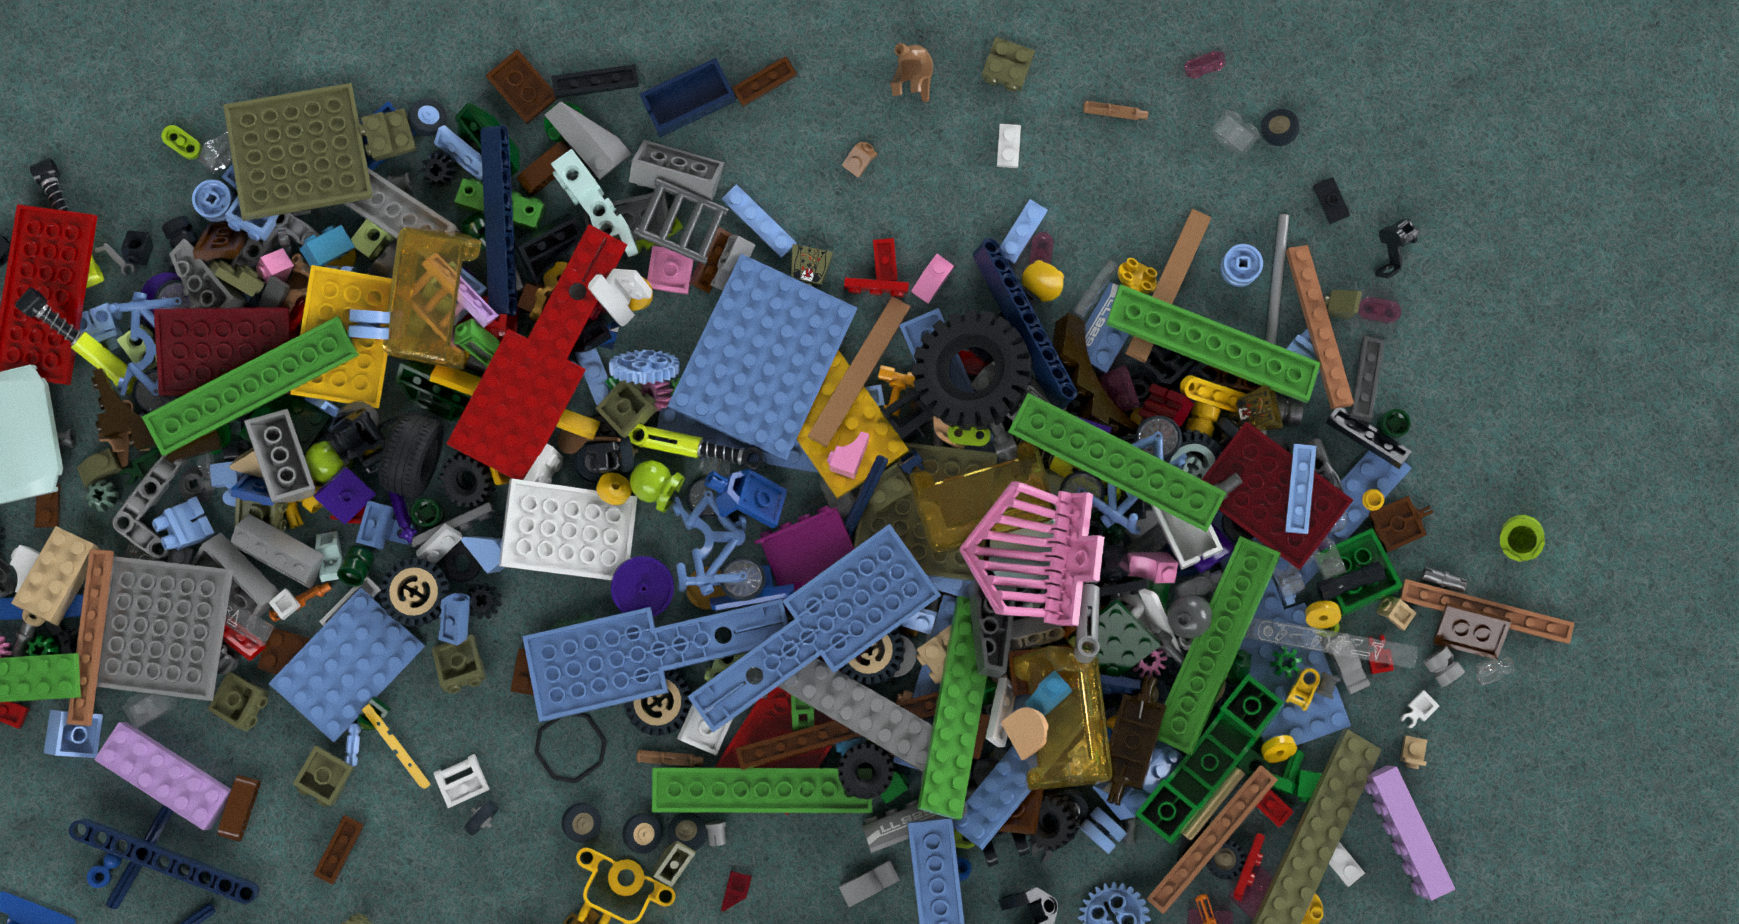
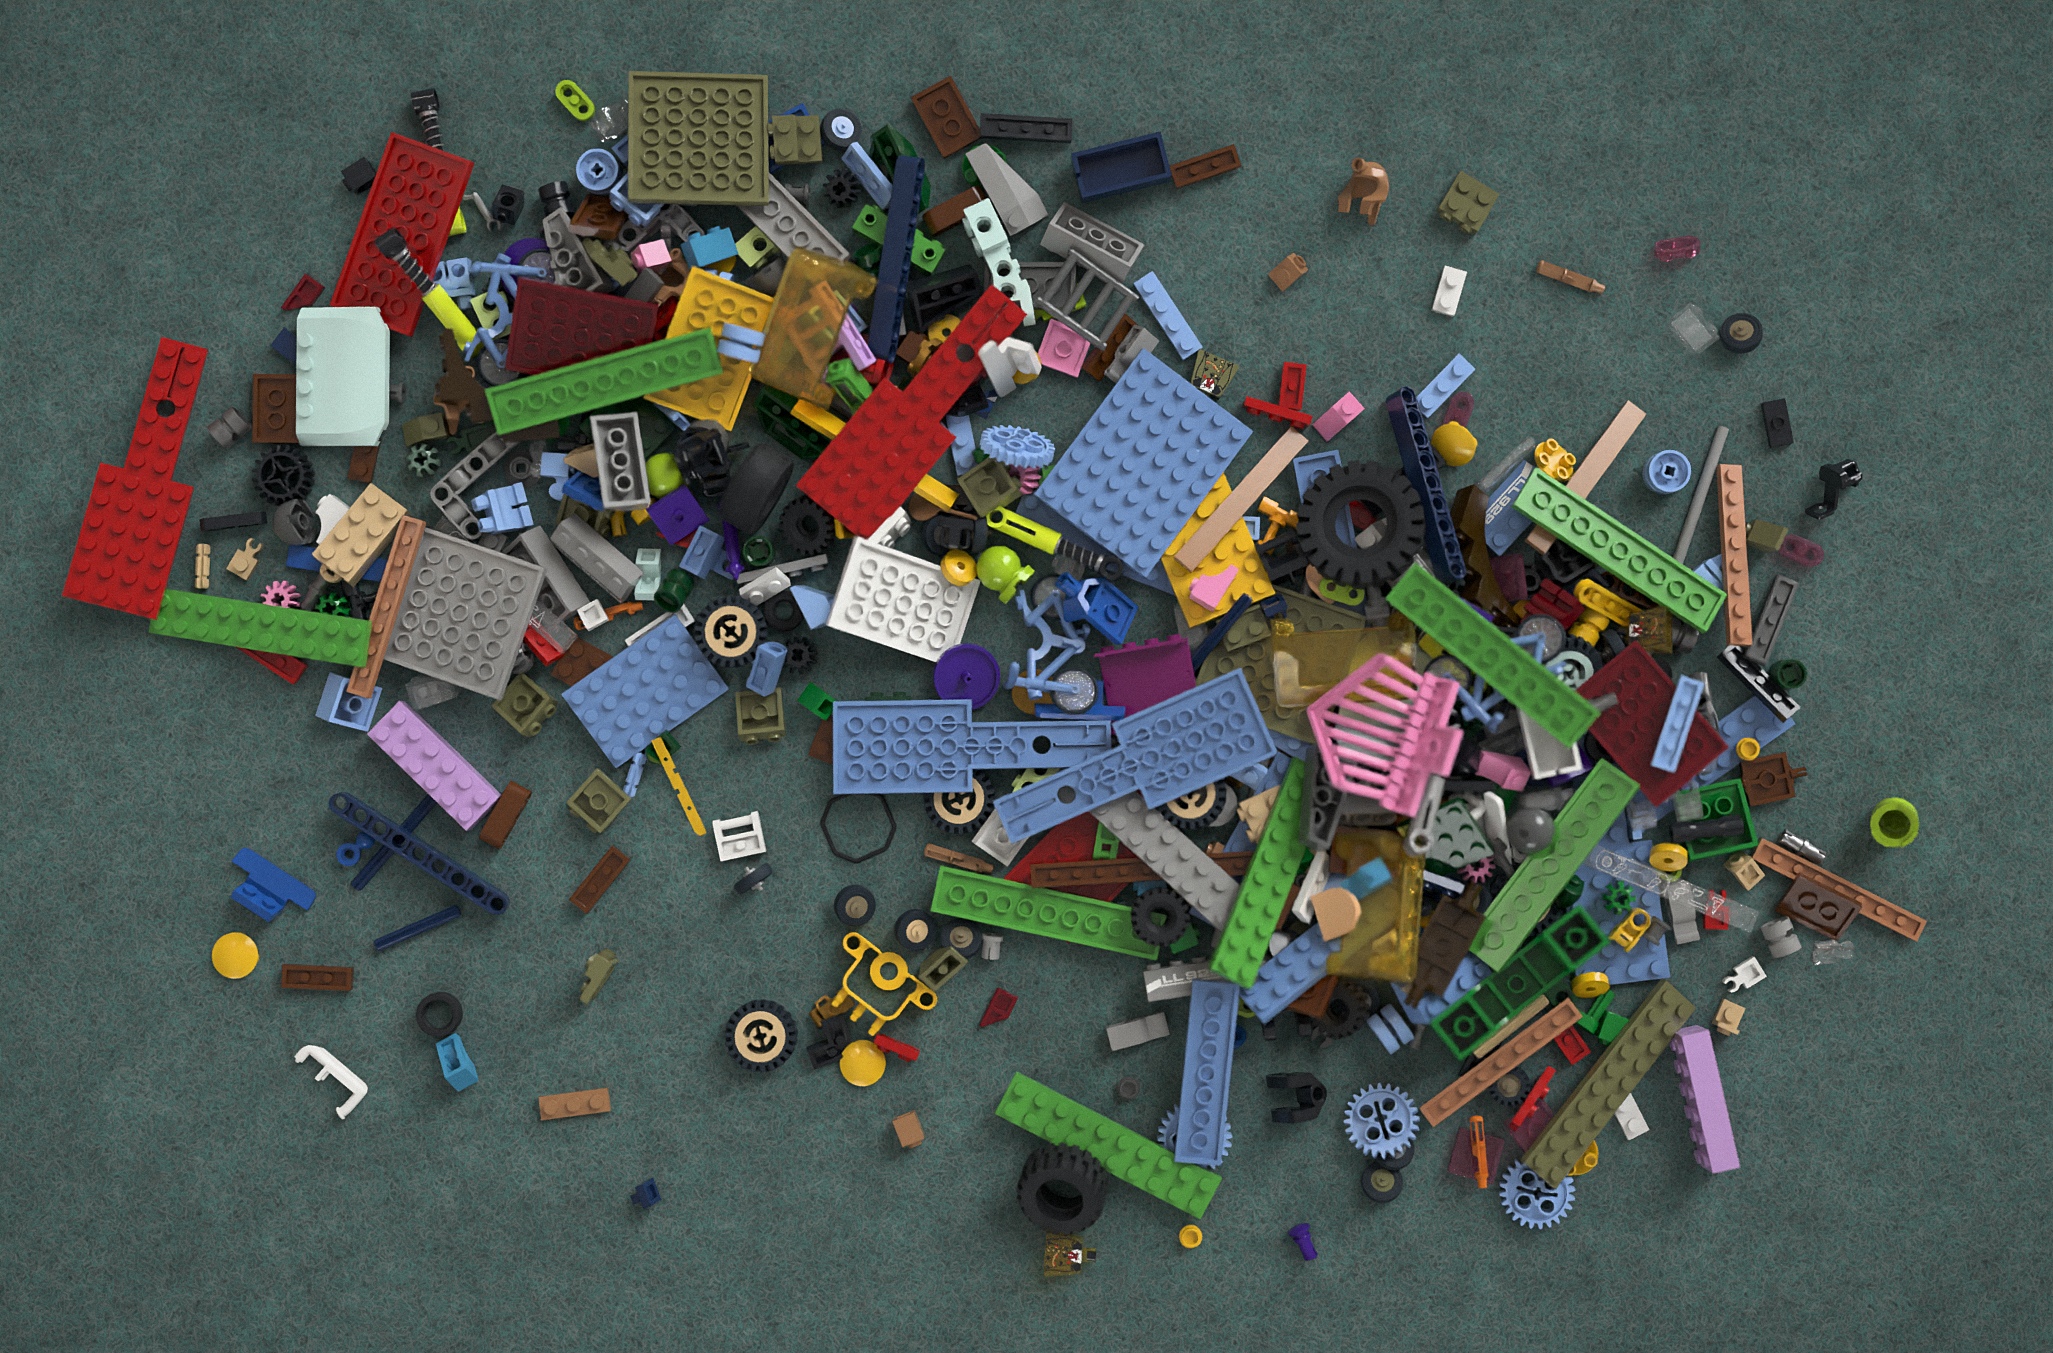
camera: 10 degrees right, 5 degrees up
(508, 639) = (817, 701): none -> green brick

